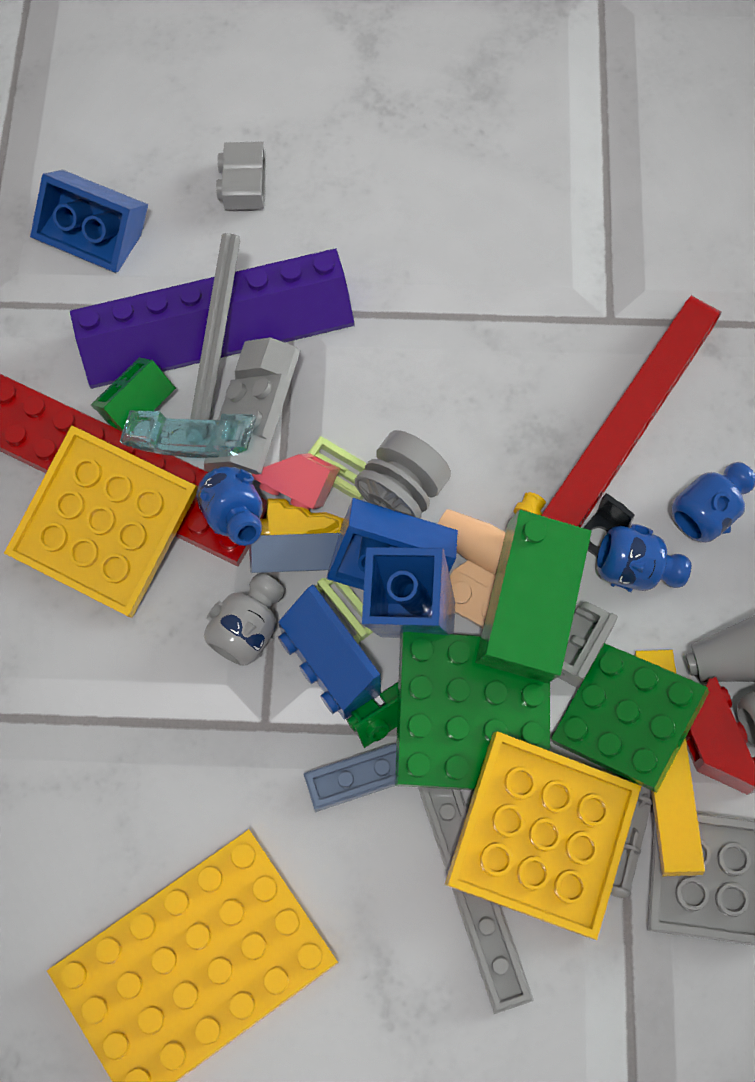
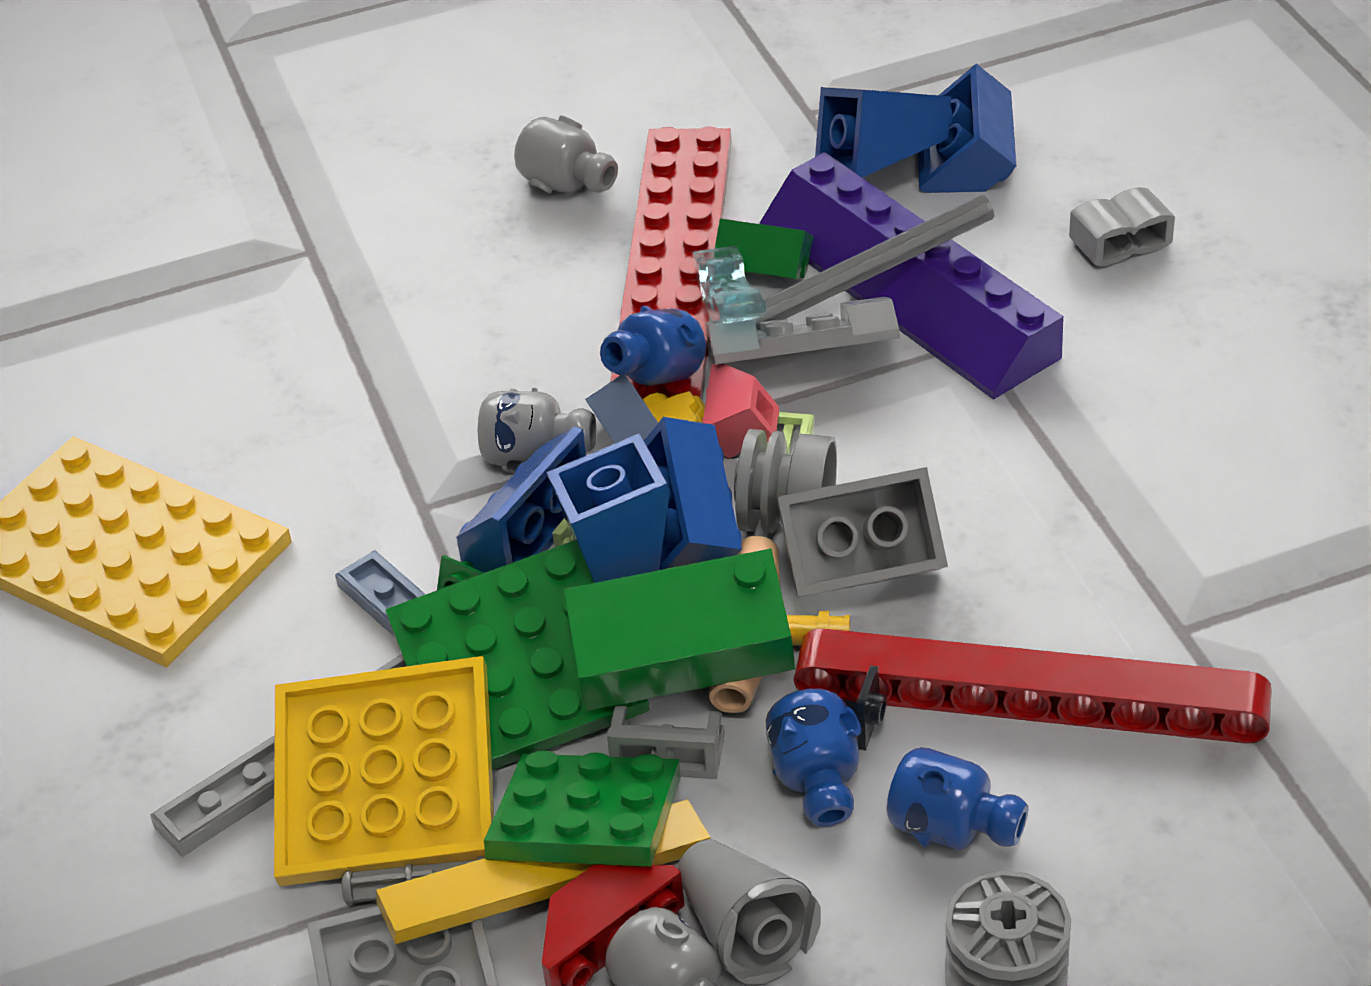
camera: 70 degrees right, 25 degrees down
(59, 267) = (879, 127): none -> blue slope
(101, 521) = (586, 277): yellow plate -> none
(480, 447) = (862, 532): none -> light grey slope

